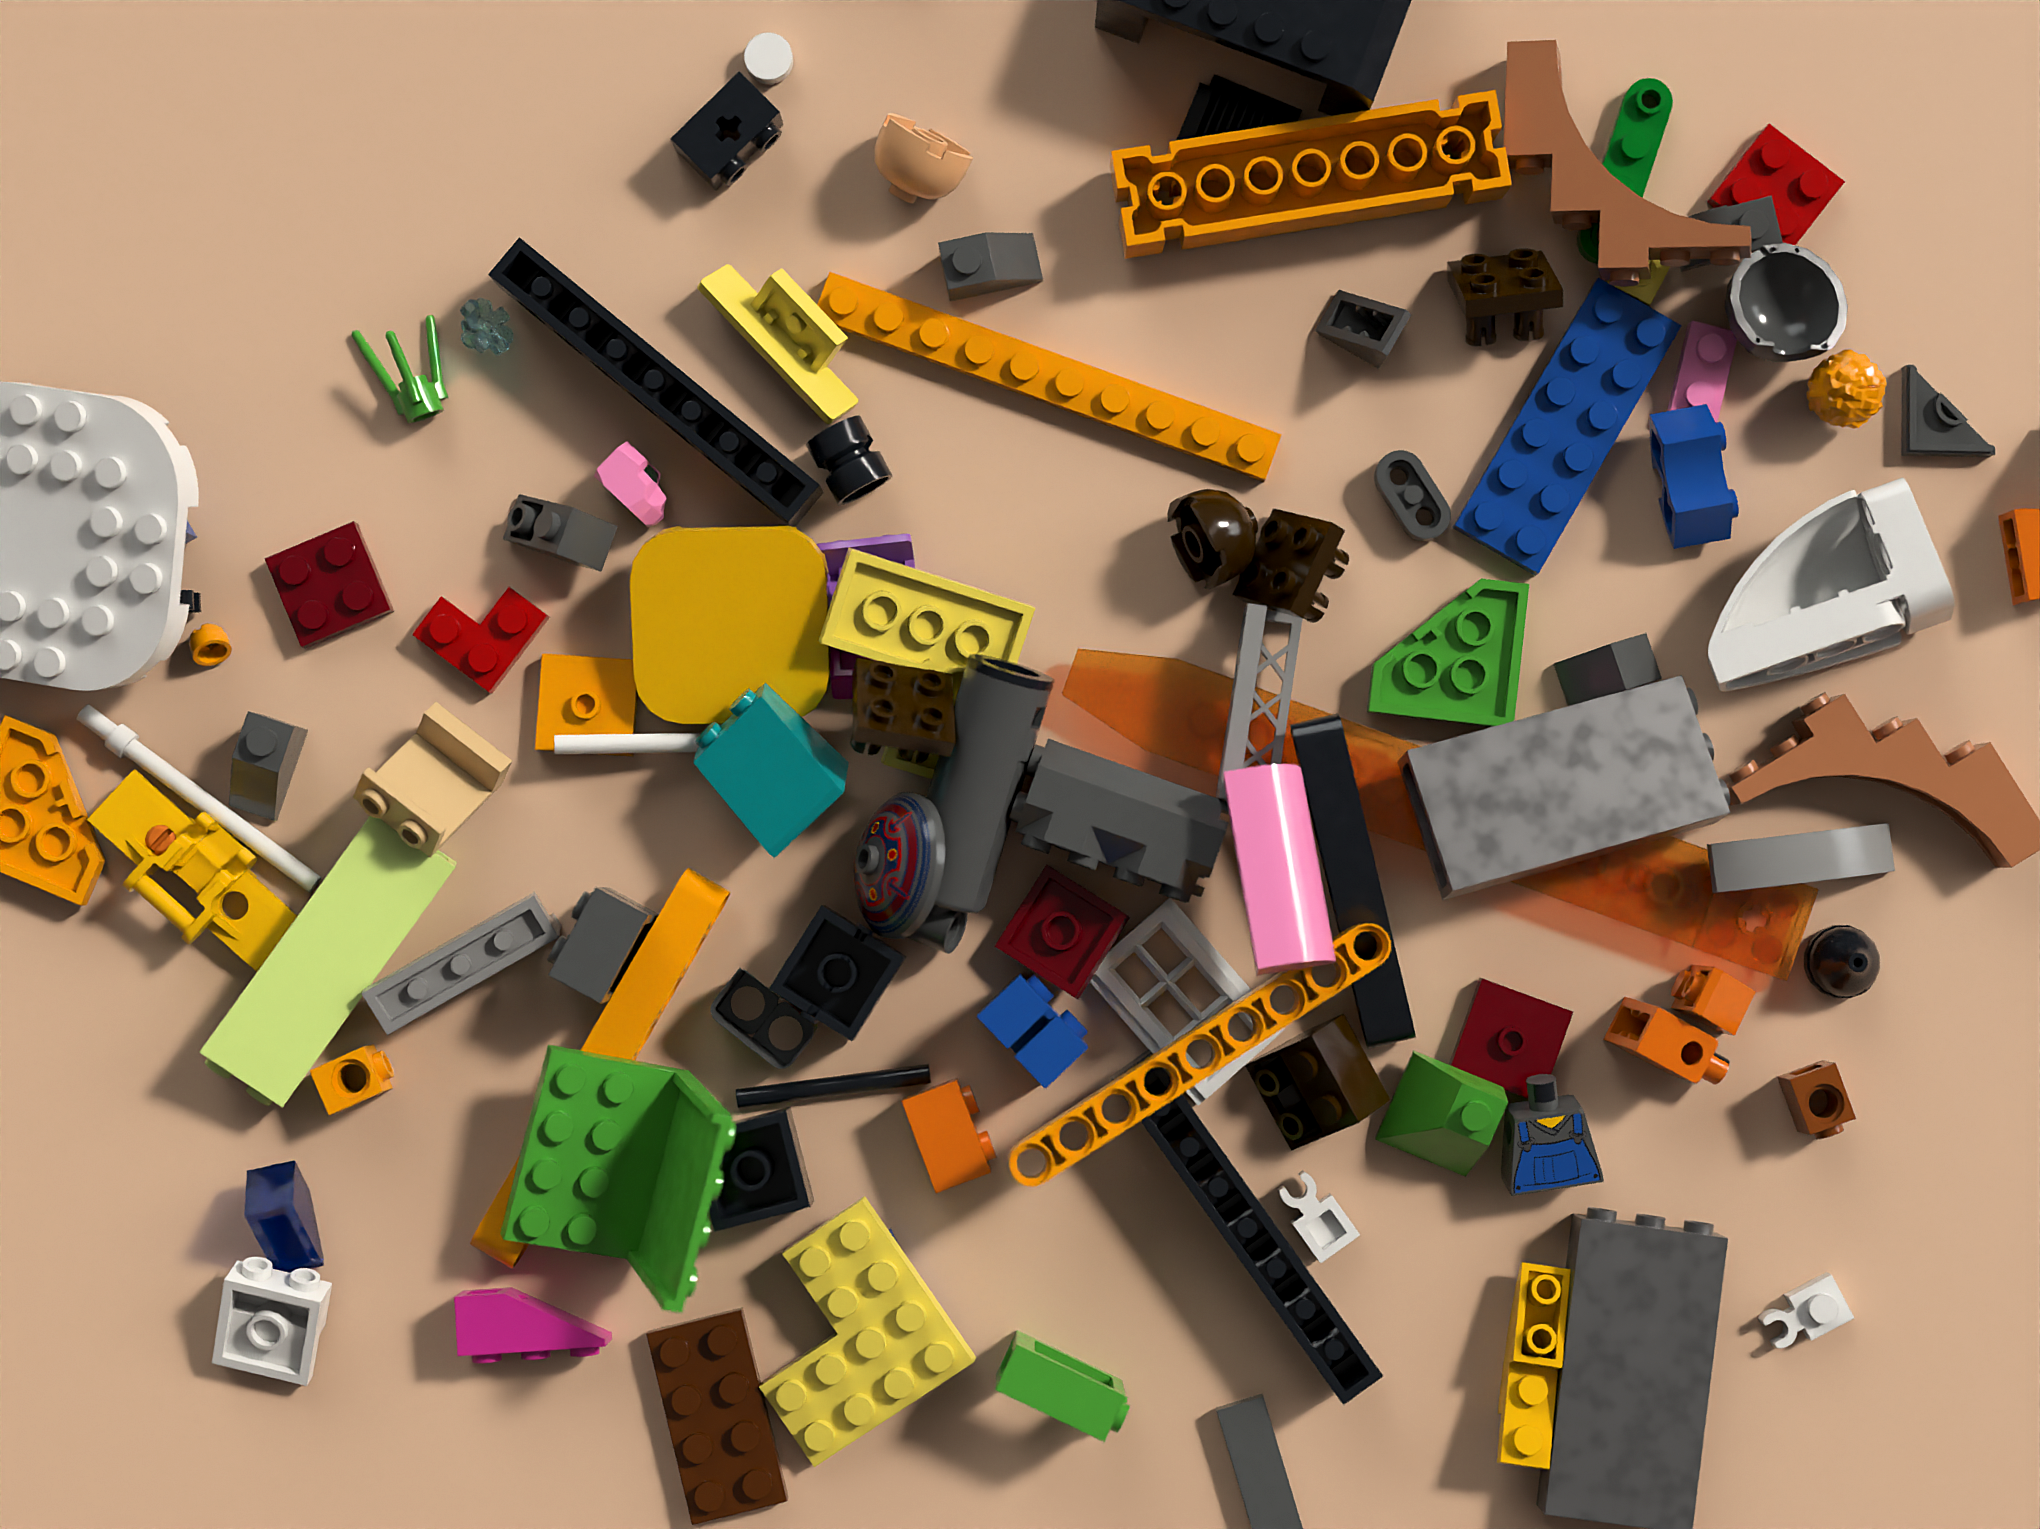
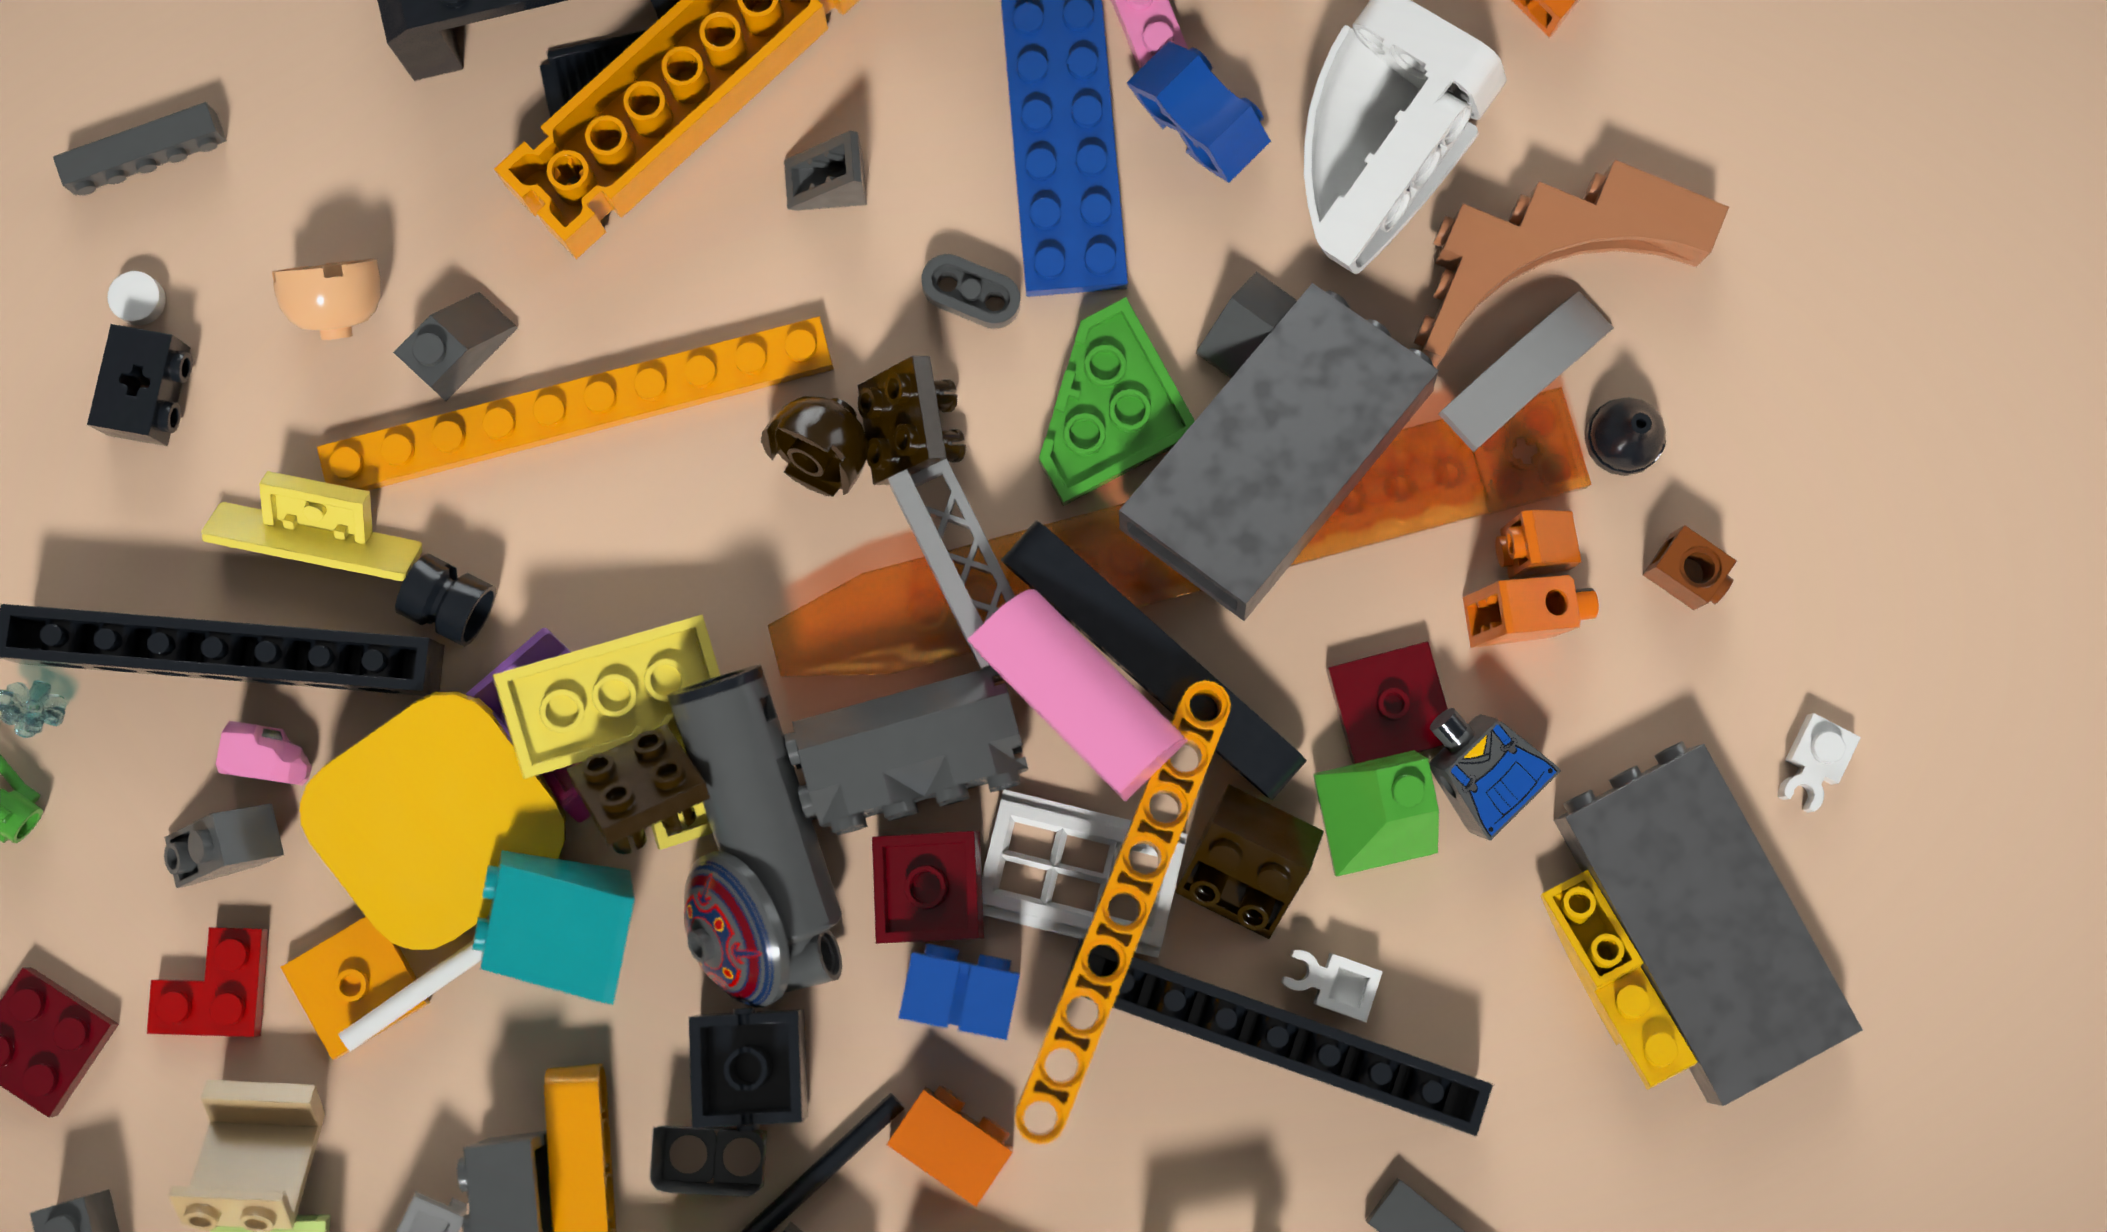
camera: 40 degrees left, 5 degrees down
(1504, 285) = (934, 45): dark brown plate -> none

